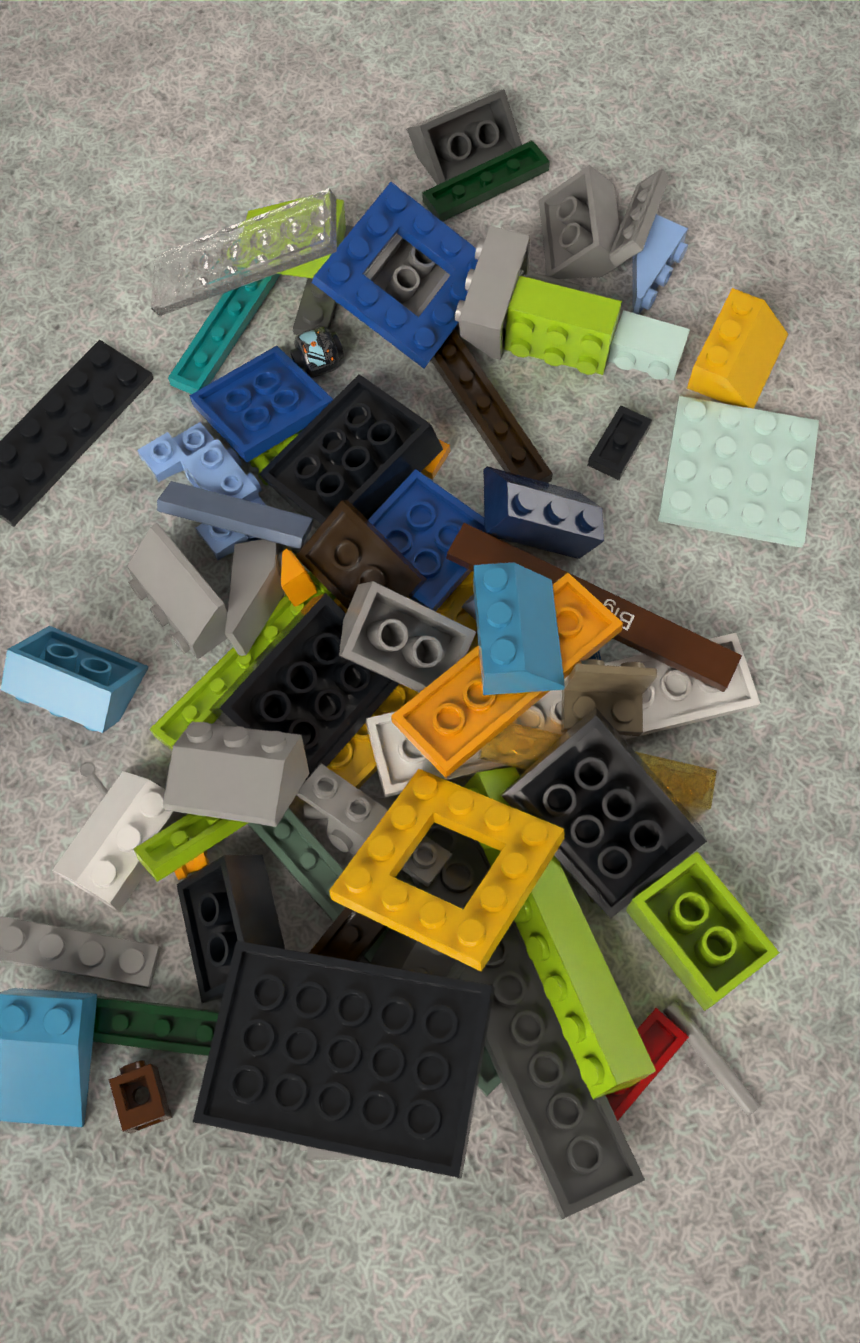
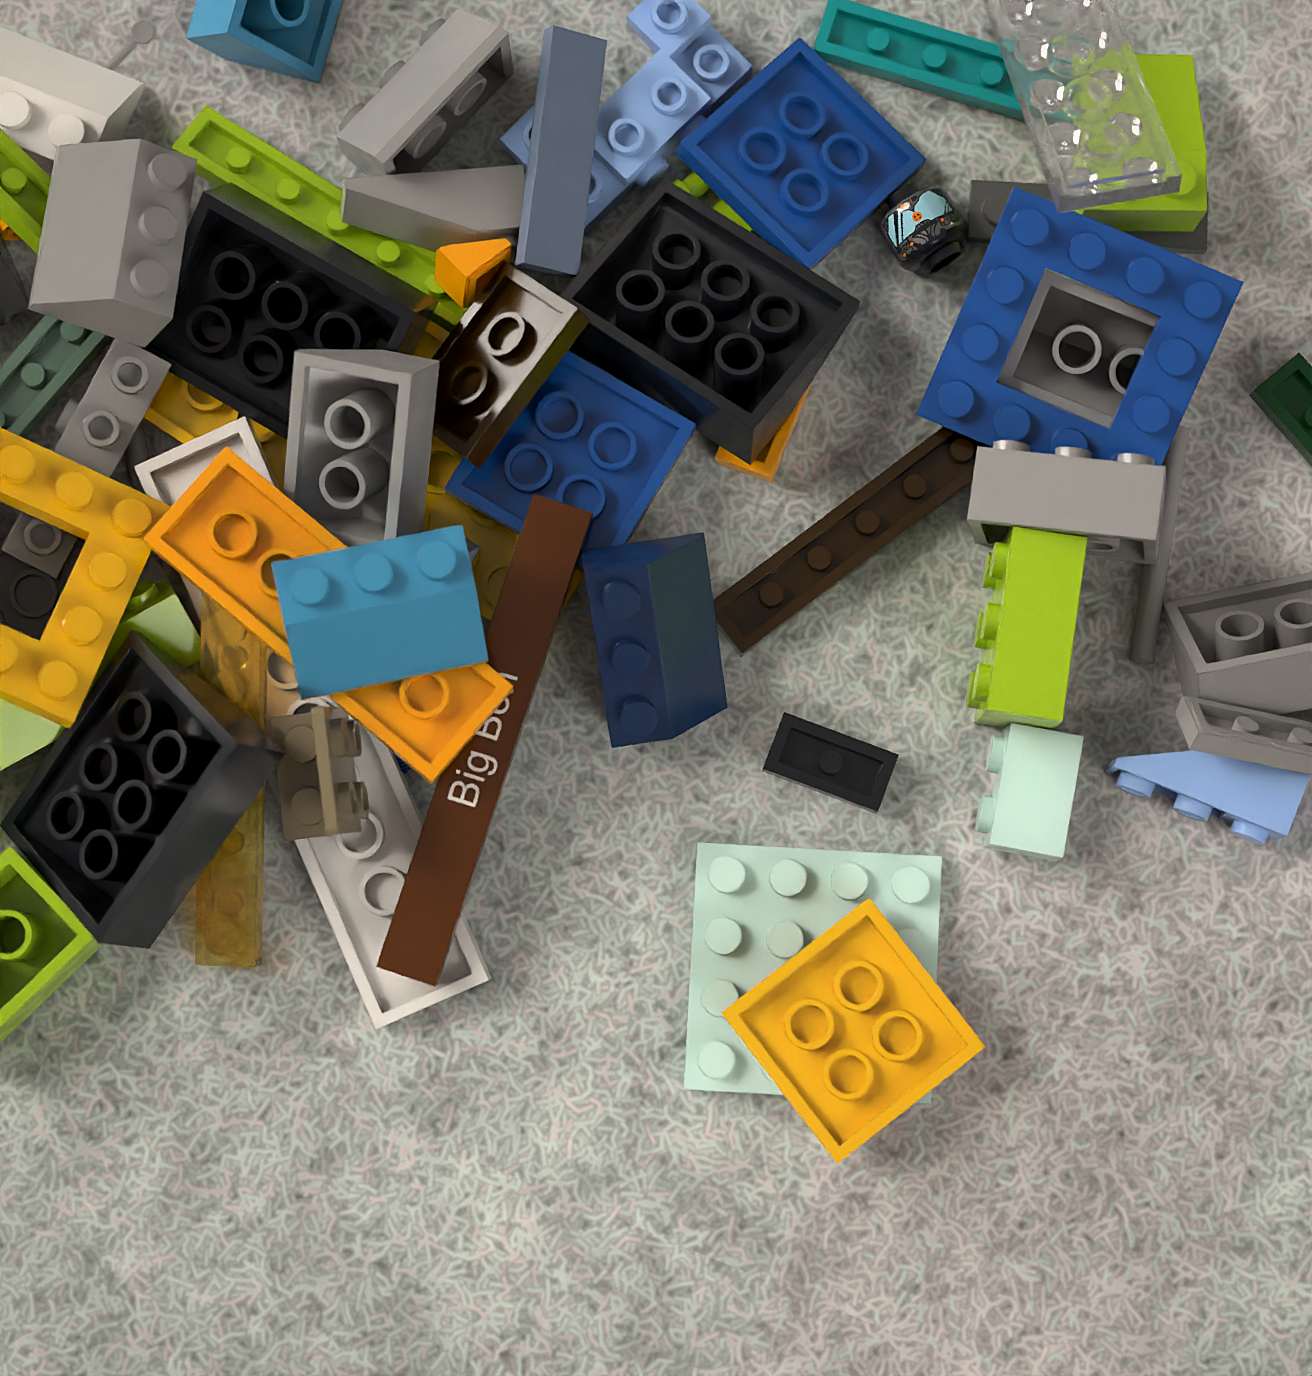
camera: 80 degrees right, 15 degrees up
(739, 351) = (1046, 955): yellow slope -> none
(780, 442) = (853, 1030): none -> yellow plate

